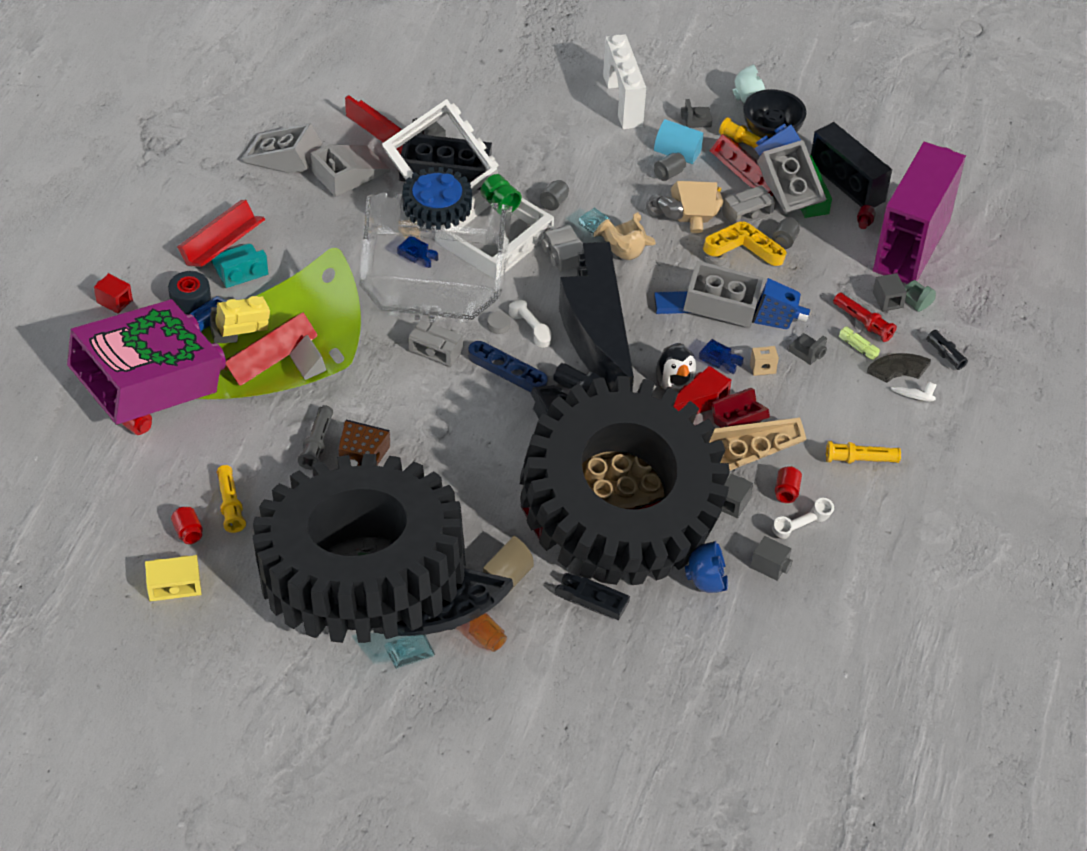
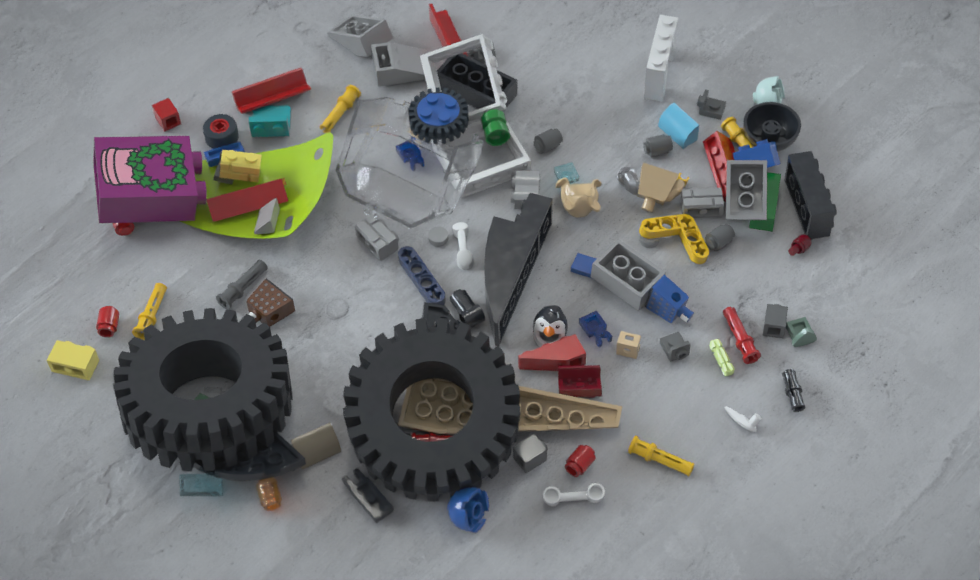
camera: 30 degrees right, 5 degrees up
(310, 223) = (344, 103): none -> yellow pin
(771, 558) = (526, 519): dark grey brick -> none
(898, 365) = (743, 389): clear smoke tile -> none
(919, 212) = (833, 258): magenta brick -> none

